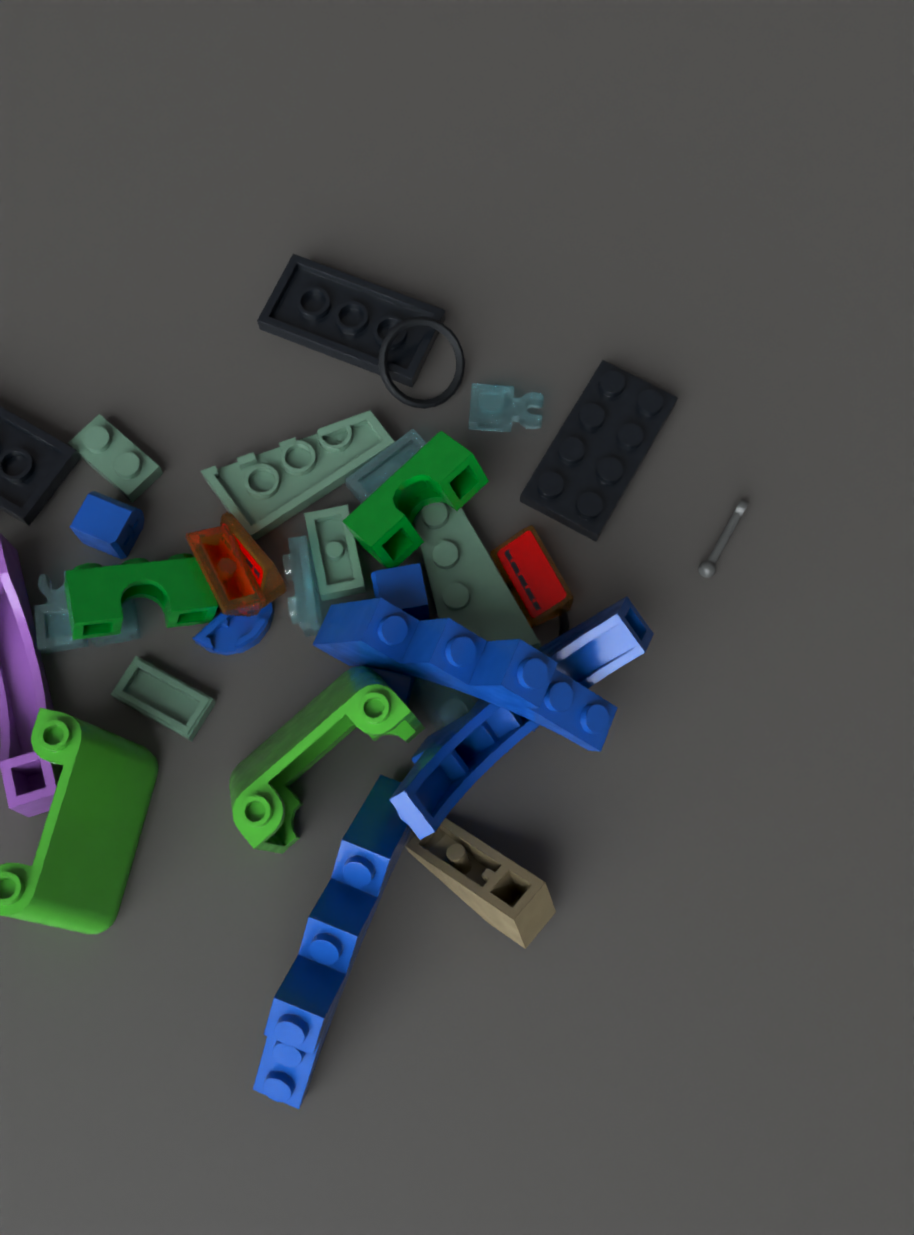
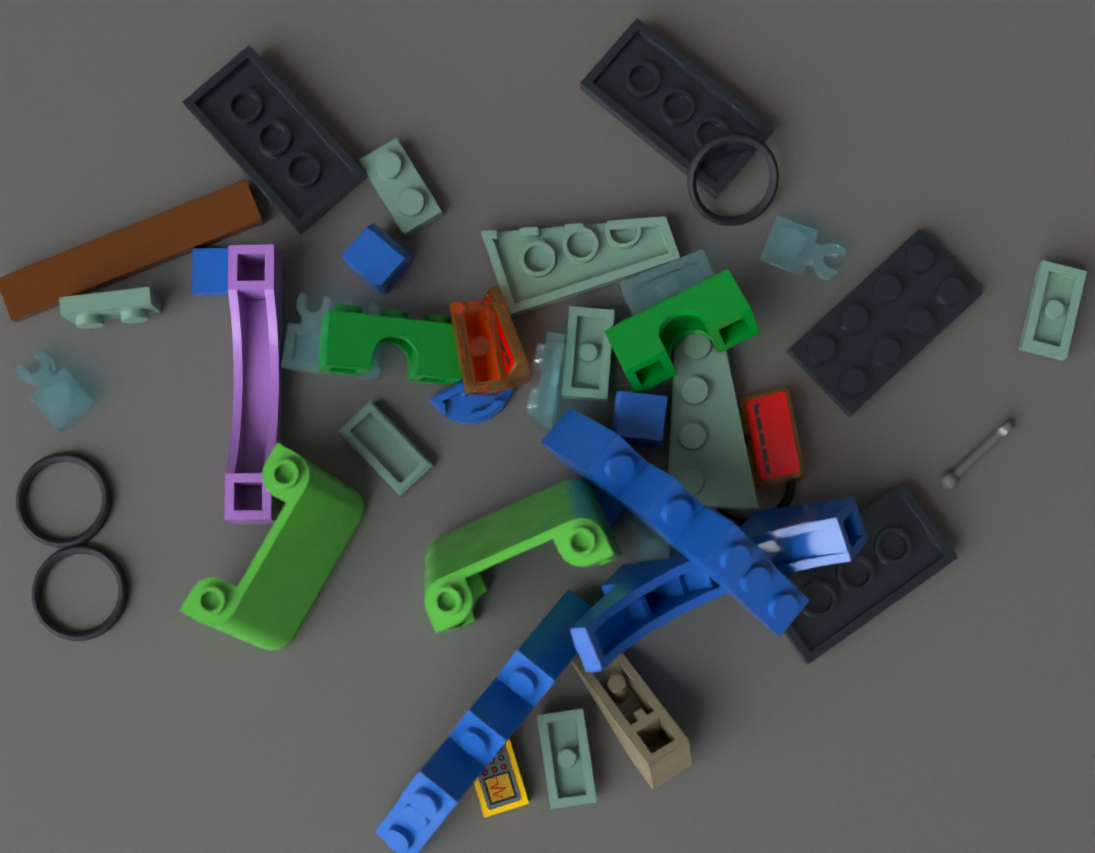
camera: 25 degrees right, 10 degrees up
(369, 993) = (501, 783): none -> tile
(429, 946) = (566, 758): none -> sand green plate
(664, 679) = (895, 560): none -> black plate
(745, 394) = (1052, 310): none -> sand green plate

